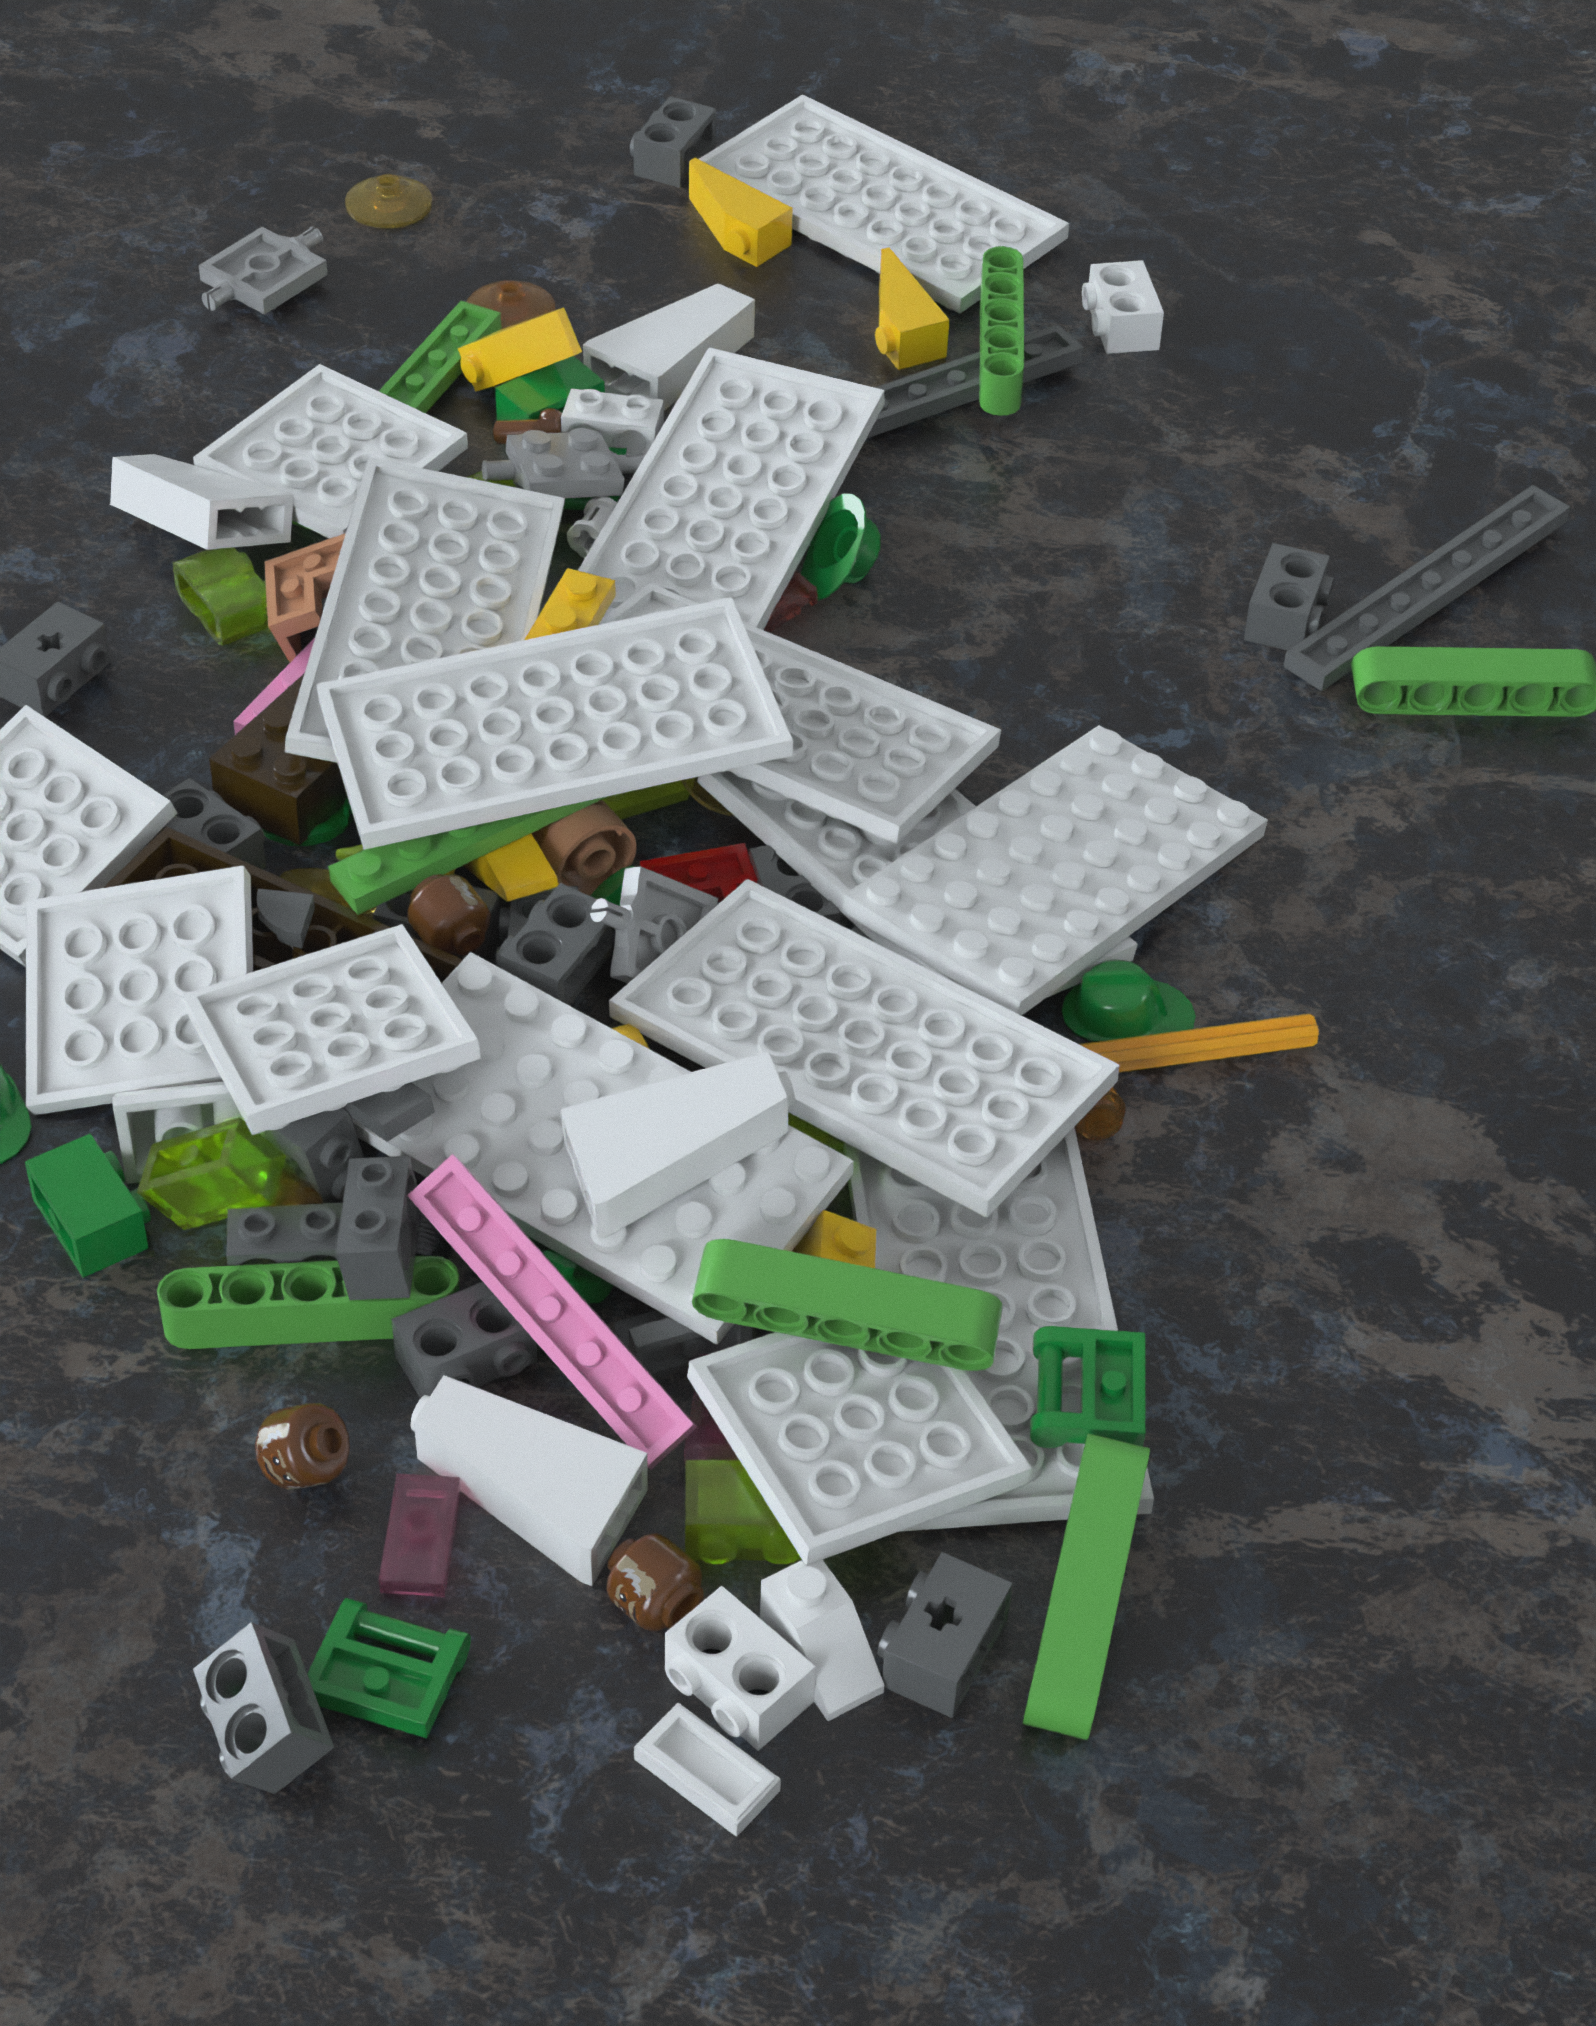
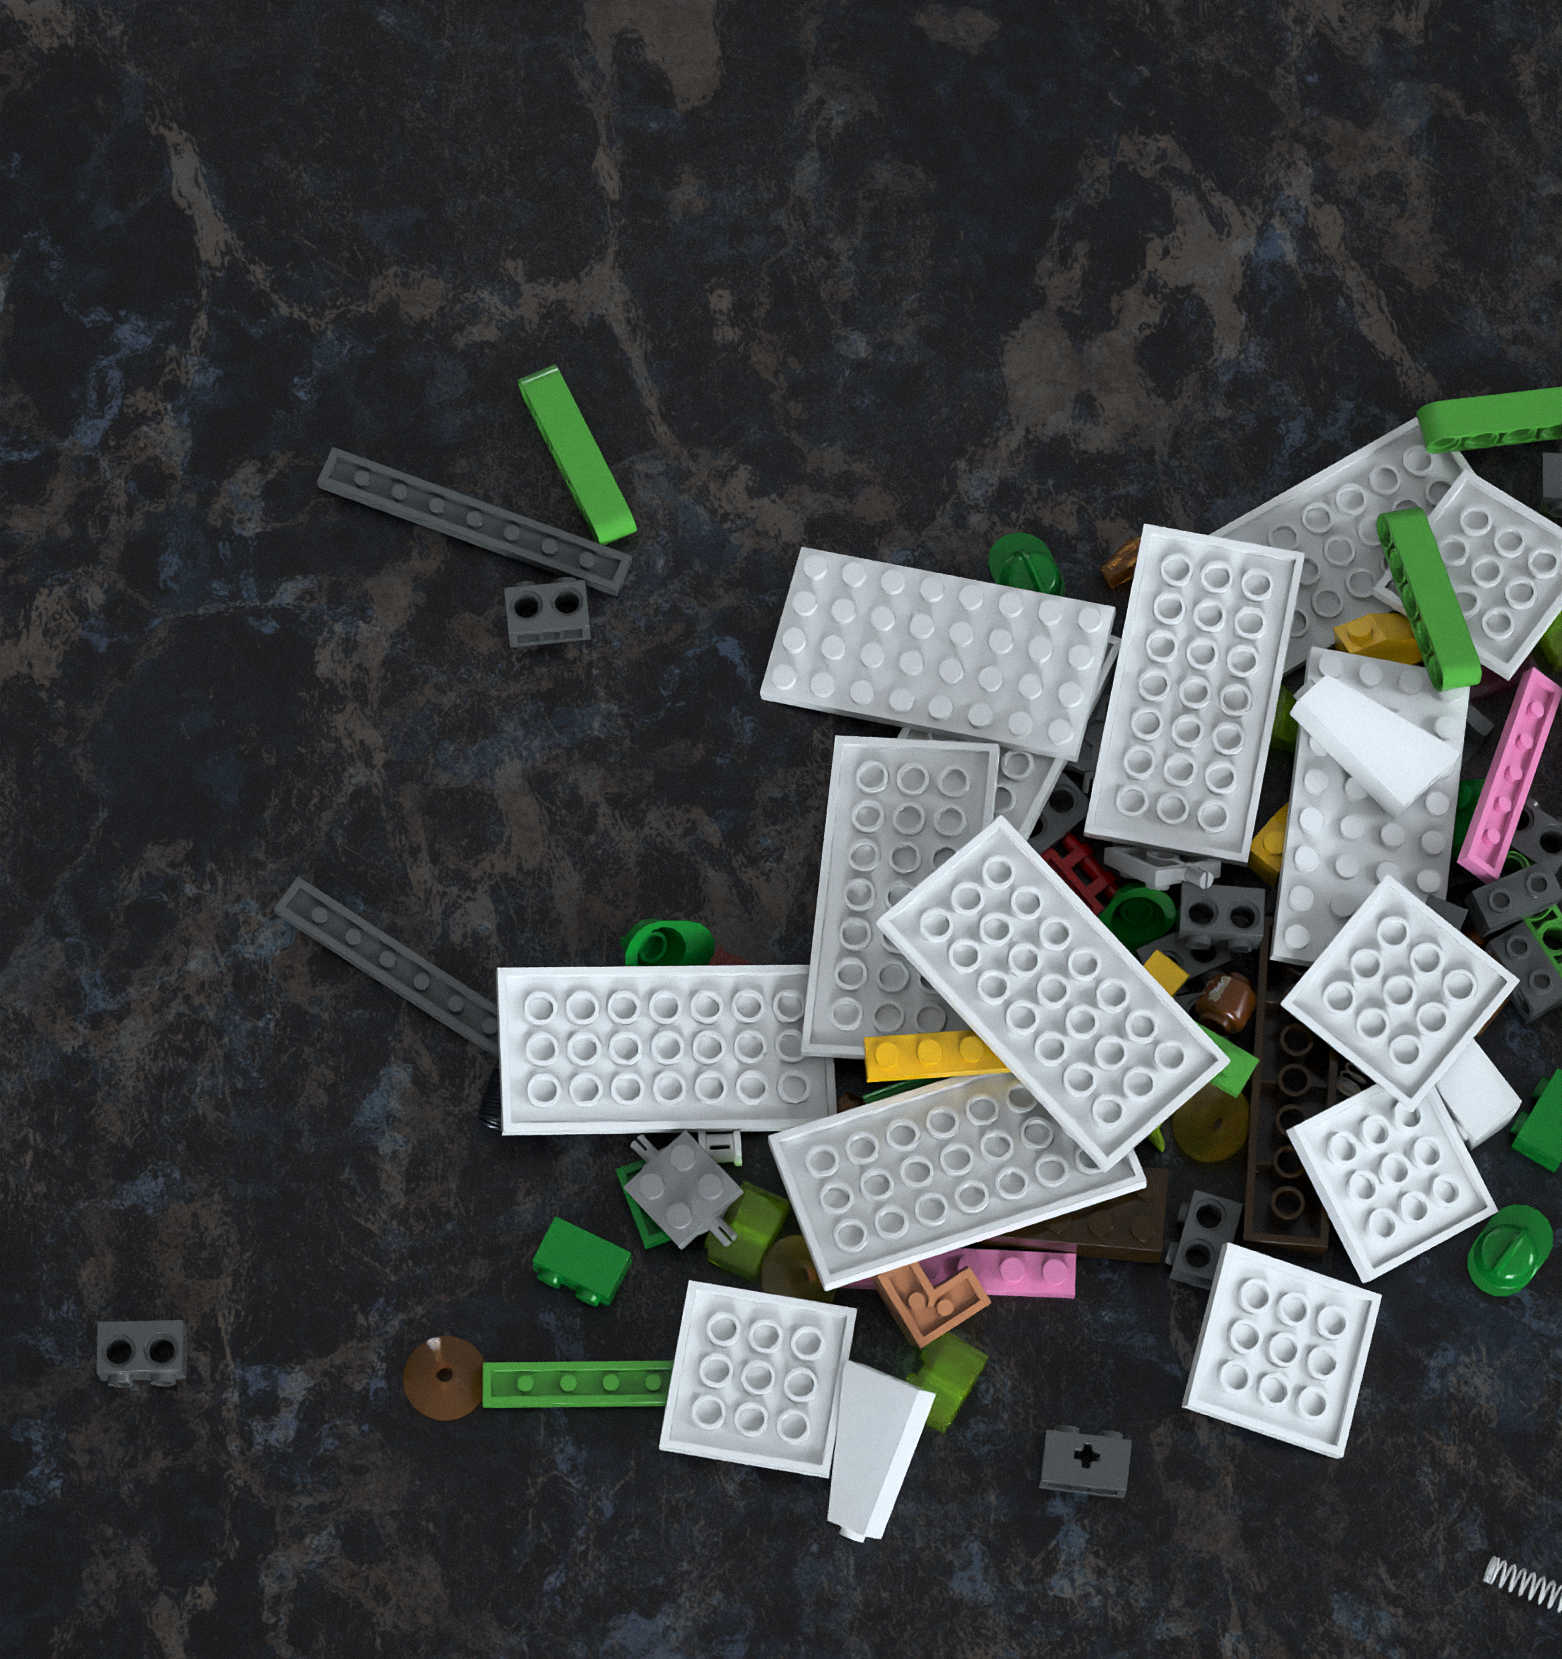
camera: 115 degrees left, 25 degrees up
(211, 1171) = (1513, 1041): clear neon green brick -> none
(263, 269) = (511, 1603): light grey plate -> none
(286, 914) = (1290, 1103): dark grey tile -> none
(388, 201) = (341, 1590): clear yellow dish -> none
(519, 349) = (559, 1302): yellow slope -> none
(548, 422) = (640, 1245): reddish brown arm -> none
(621, 419) = (599, 1189): white brick -> none
(665, 347) = (459, 1201): white slope -> none
(739, 215) = (236, 1238): yellow slope -> none
(877, 193) = (145, 1138): white plate -> none
(910, 322) = (318, 1038): yellow slope -> none
(1001, 331) = (317, 951): bright green beam -> none
(1110, 1386) = (1377, 452): green plate -> none
(1123, 307) = (209, 860): white brick -> none
(1209, 1043) = (1053, 534): light orange axle -> none

